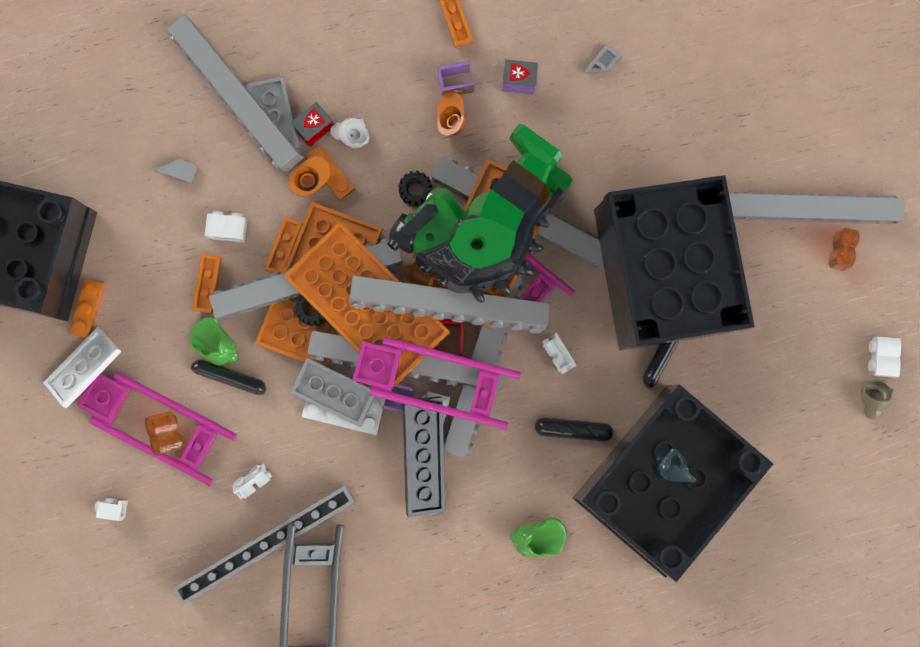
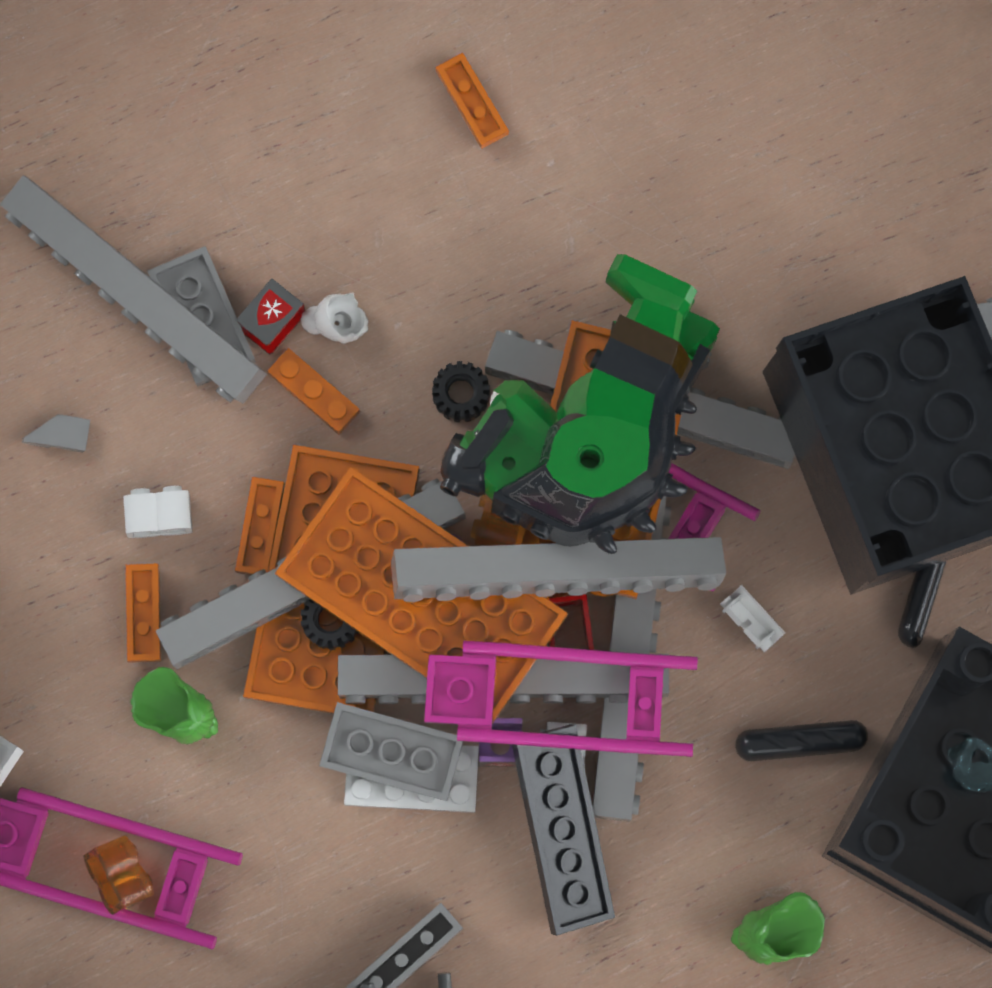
camera: 10 degrees left, 5 degrees down
(228, 377) = (209, 761): black piece -> none
(257, 475) = (269, 938): white hinge -> none
(309, 176) = (283, 403): orange piece -> none
(451, 114) = (496, 259): orange piece -> none
(454, 69) = (485, 185): medium lavender piece -> none
(519, 76) = (597, 176): piece -> none
(604, 61) = (730, 125): light grey slope -> none

